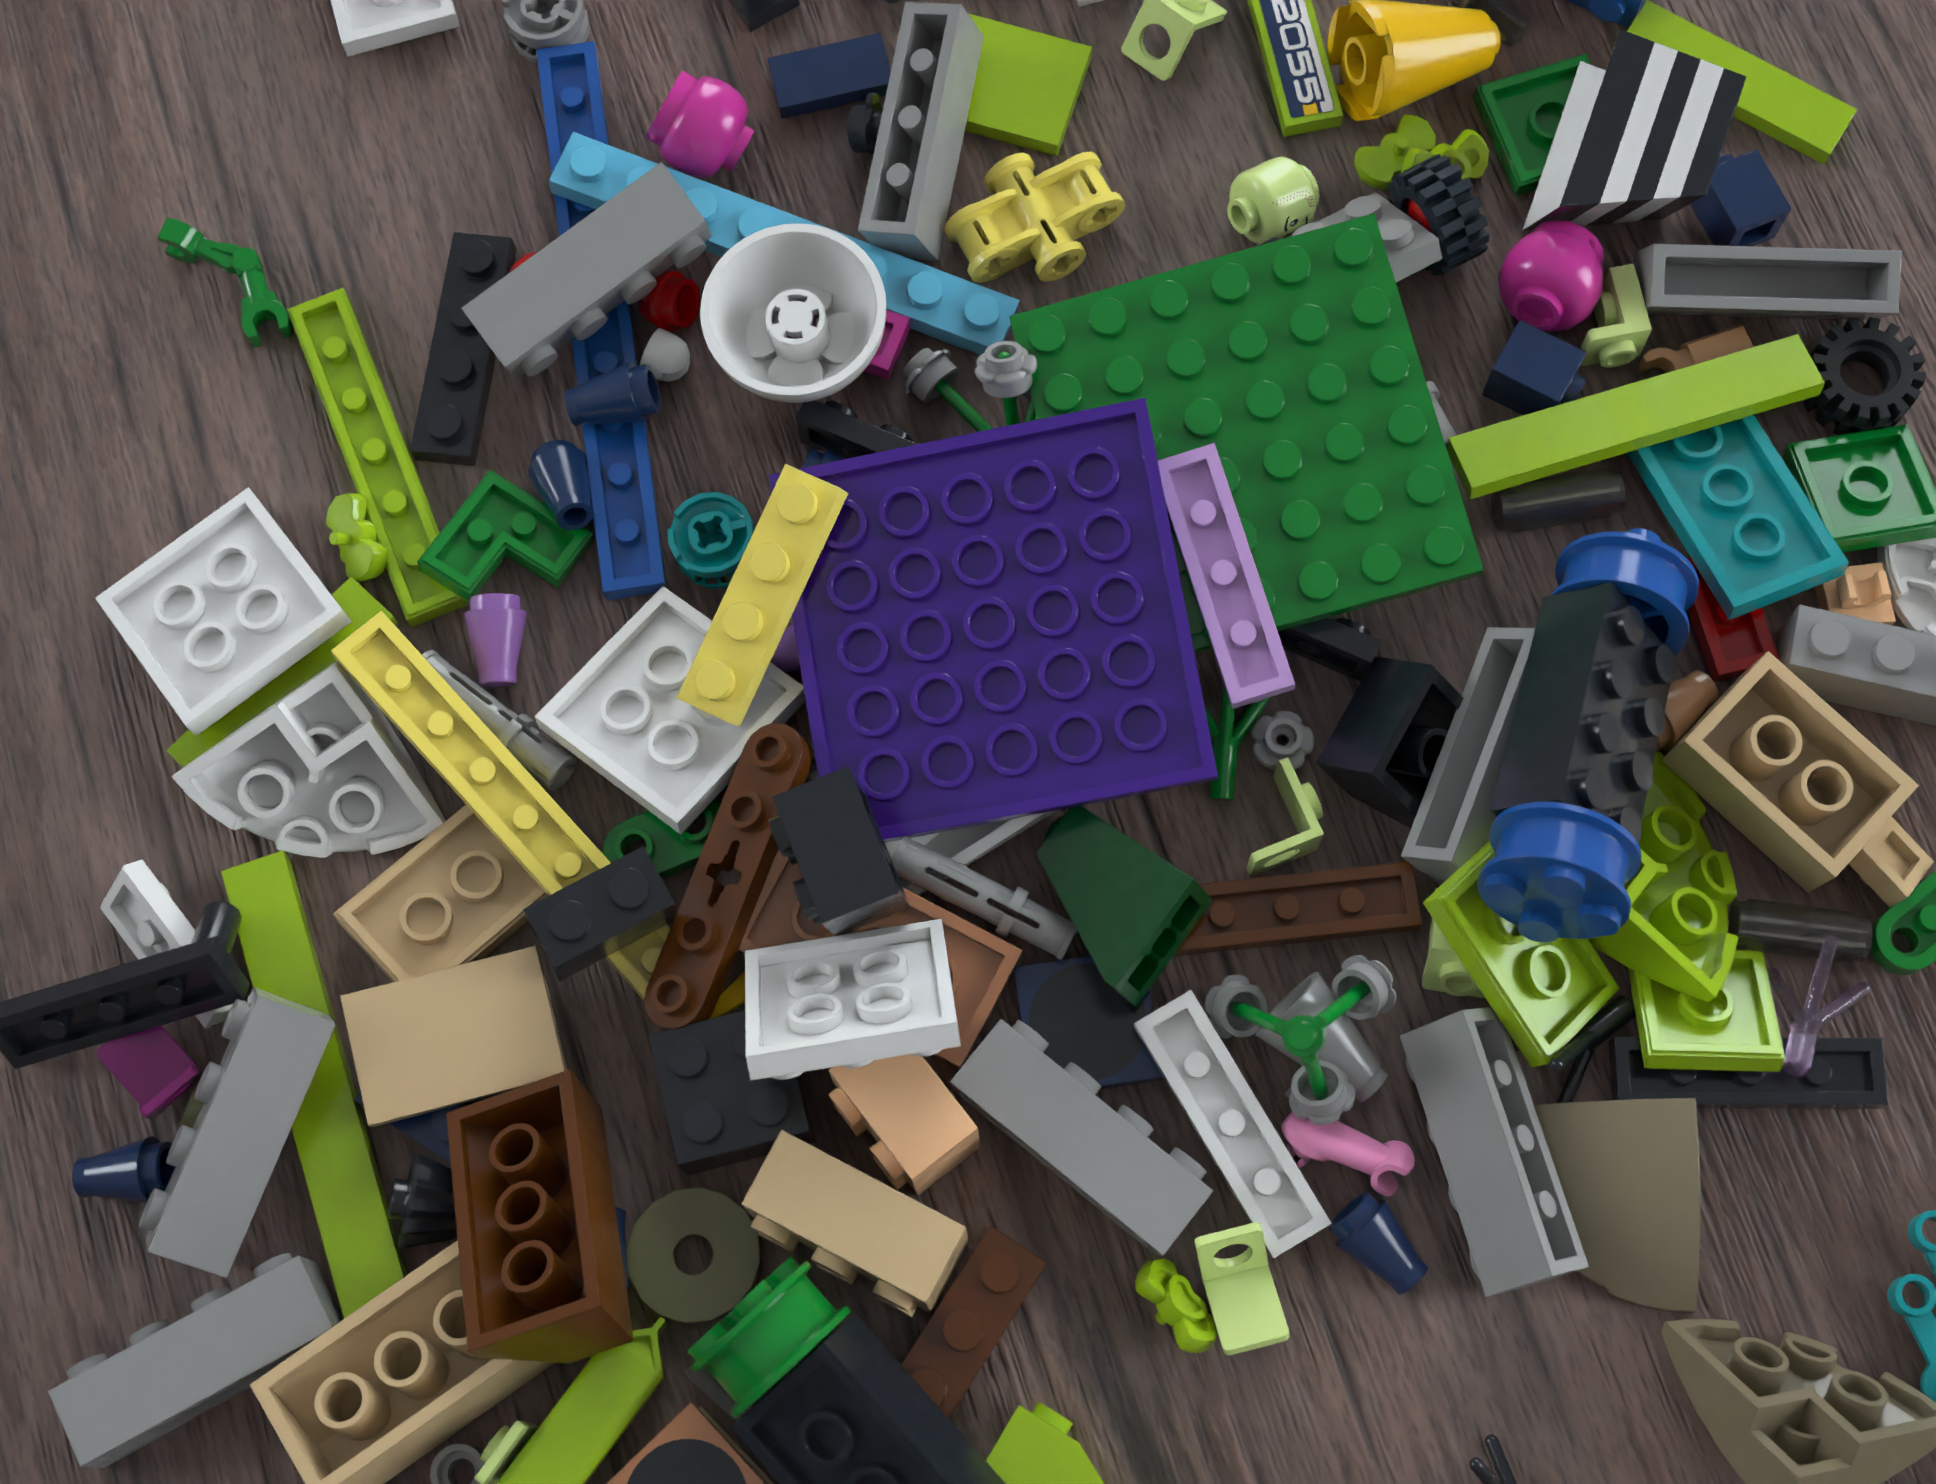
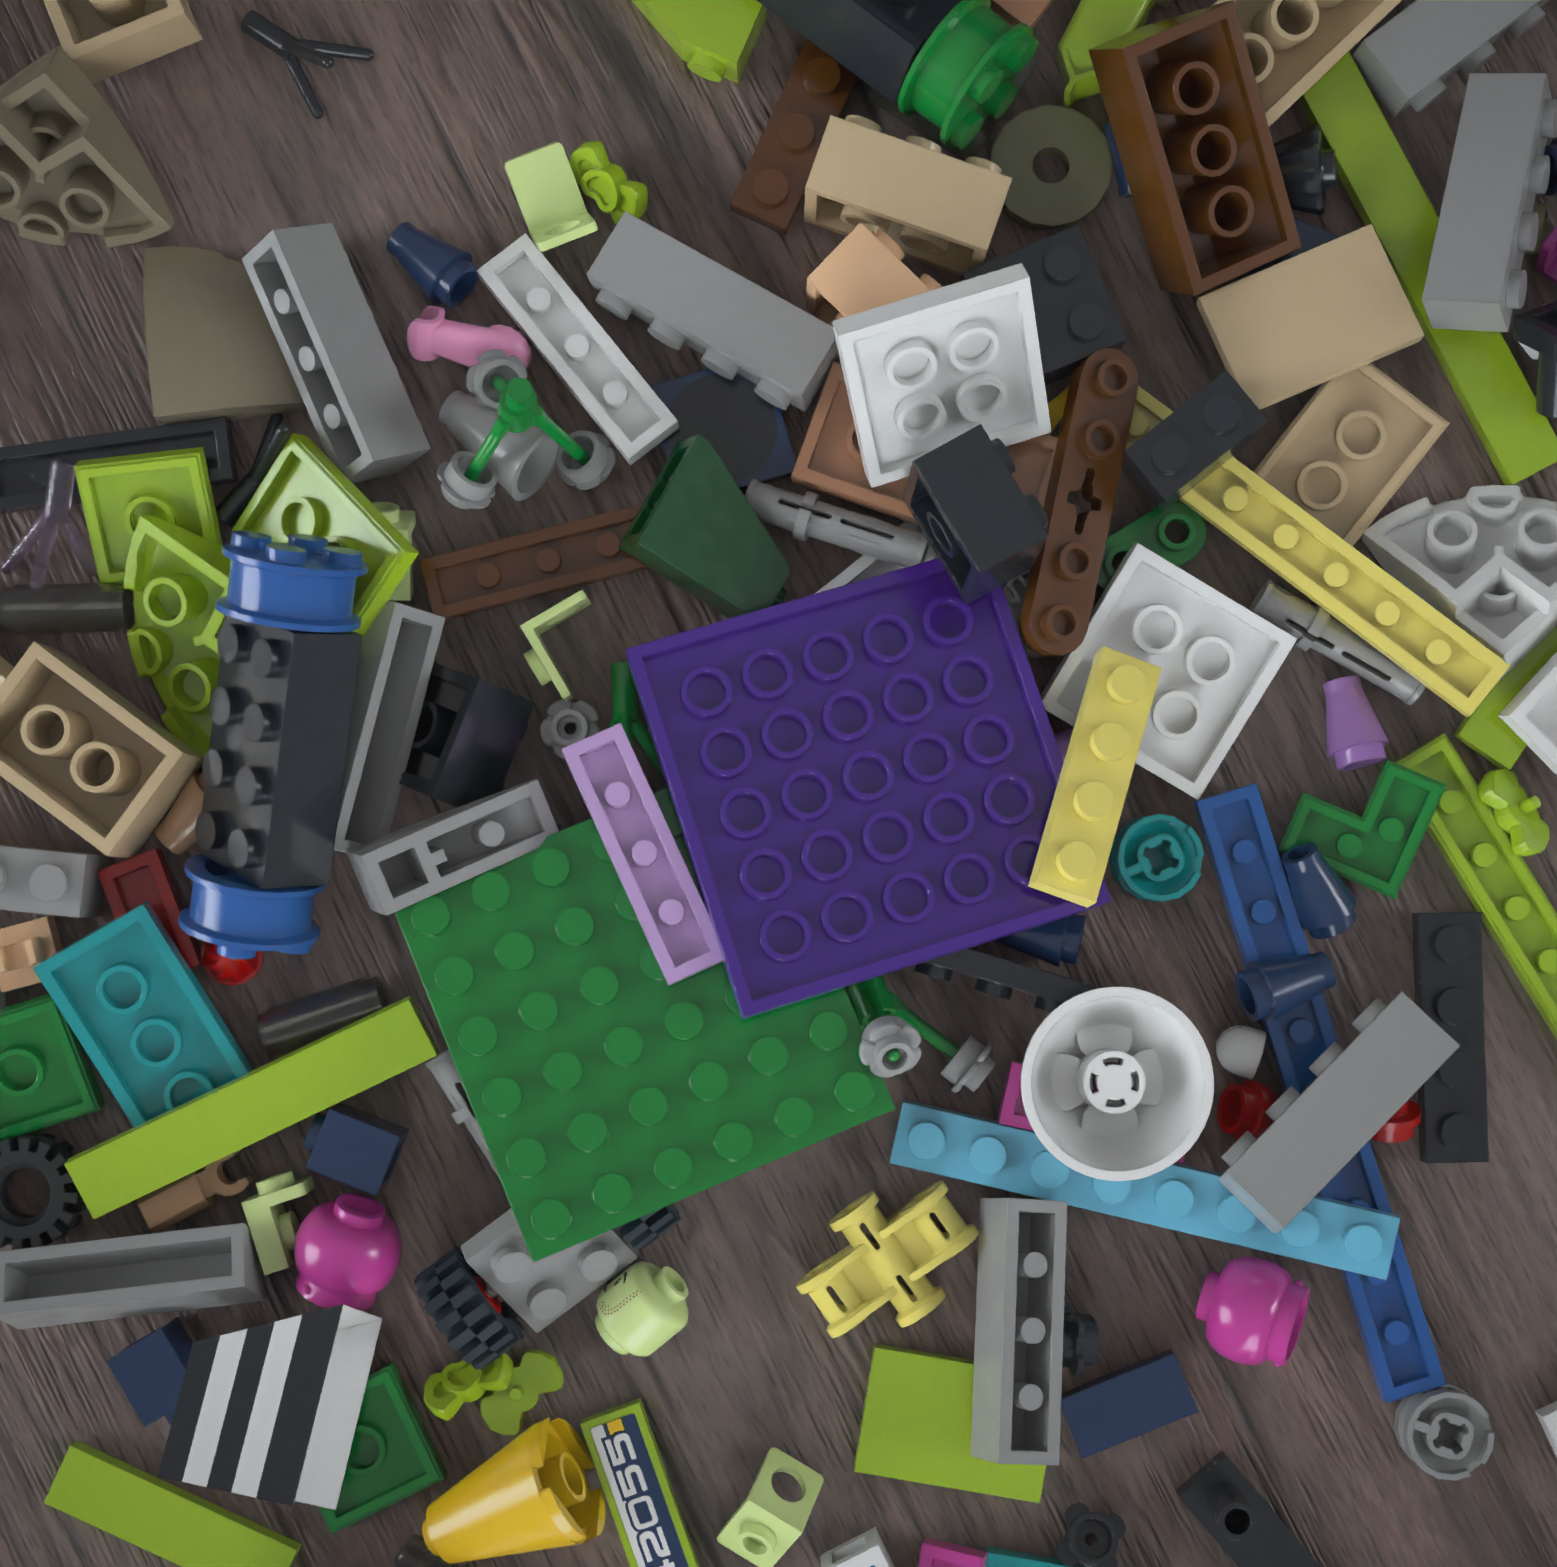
camera: 170 degrees right, 15 degrees up
(1418, 614) = (451, 847): none -> light grey slope

